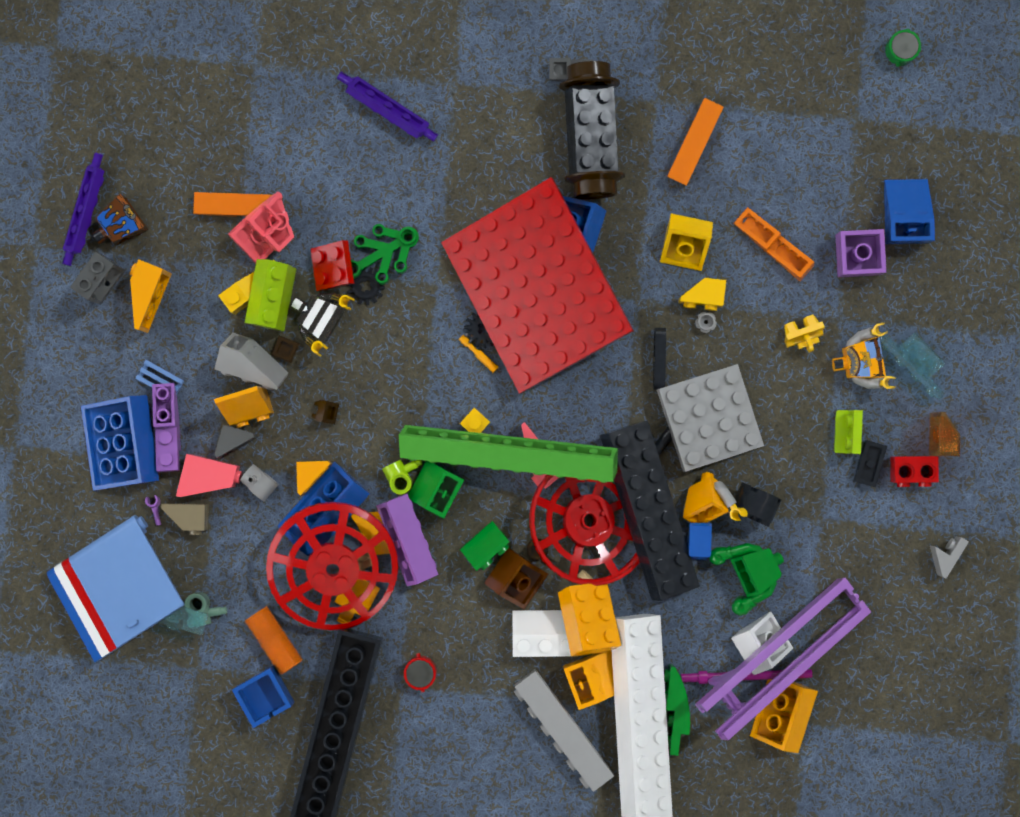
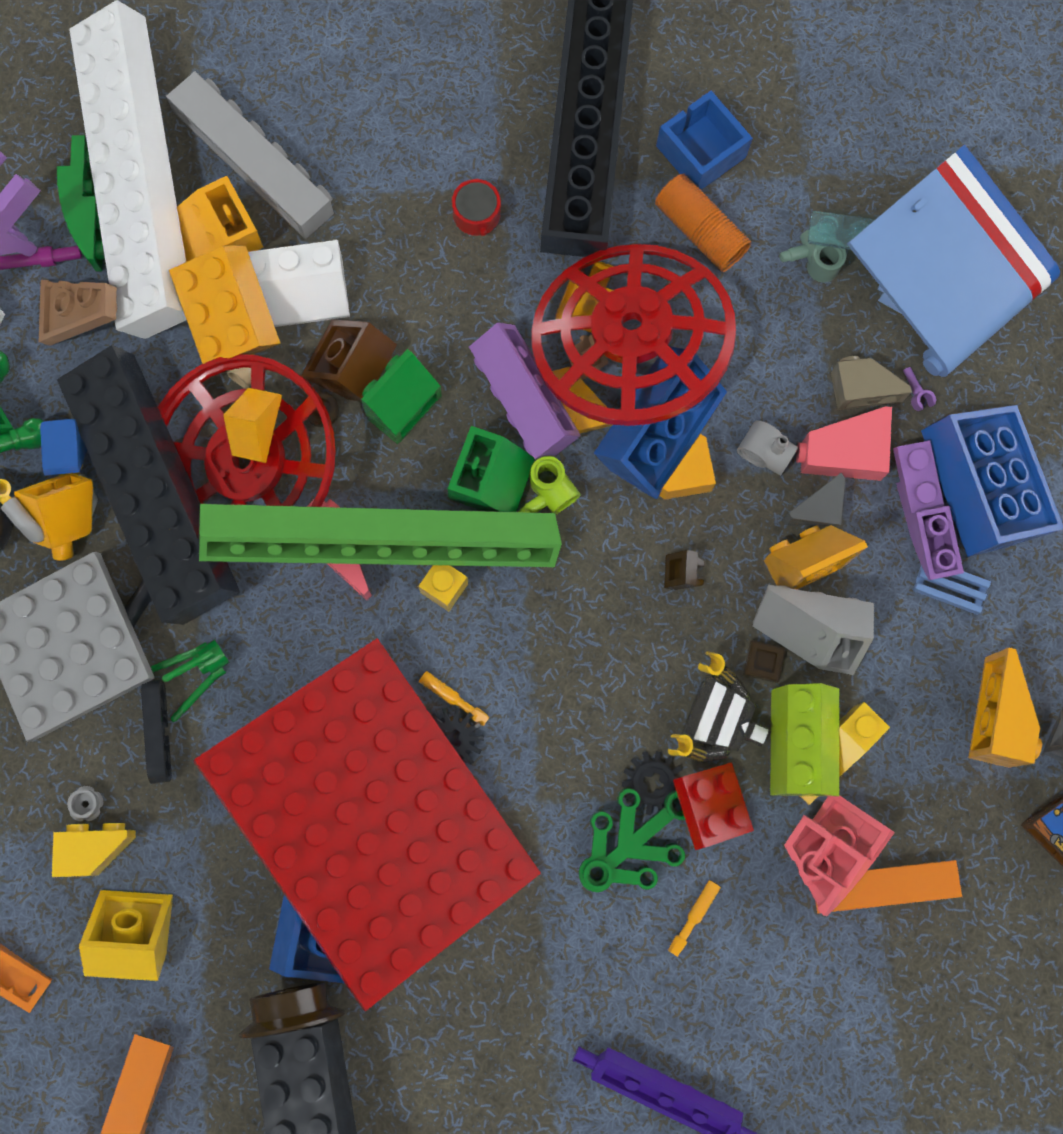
camera: 165 degrees right, 10 degrees down
(352, 206) = (695, 916): none -> light orange piece
(578, 536) = (252, 424): none -> light orange slope
(624, 398) = (207, 658): none -> green plant
(686, 634) = (74, 309): none -> medium nougat wing

